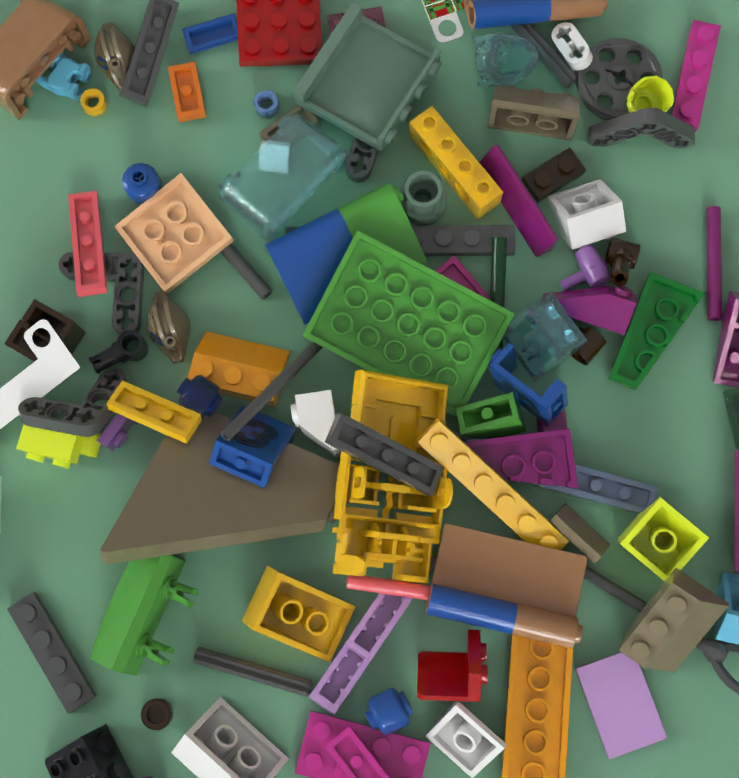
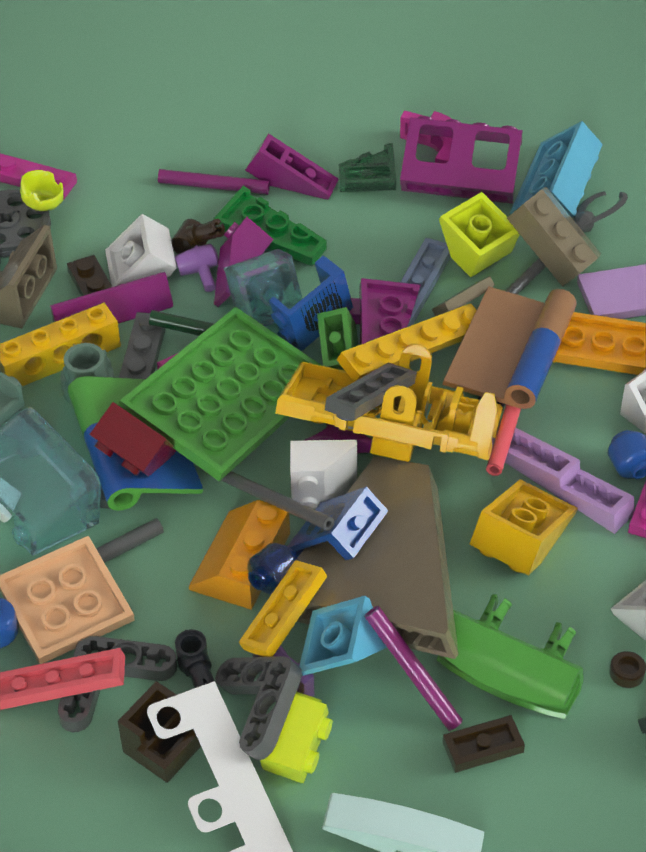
camera: 85 degrees left, 30 degrees down
(51, 652) = (550, 771): dark grey plate -> none
(67, 594) = (483, 743): none -> dark brown plate
(113, 511) = (413, 668): none -> magenta piece
(120, 463) = (339, 636): none -> medium azure slope
(168, 327) = (170, 615): dark tan hat -> none
(252, 671) = (584, 574): dark grey axle -> none
(314, 250) = (131, 440): none -> dark red slope
(453, 674) = (597, 390): red bracket -> none
(644, 121) = (69, 185): dark grey beam -> none

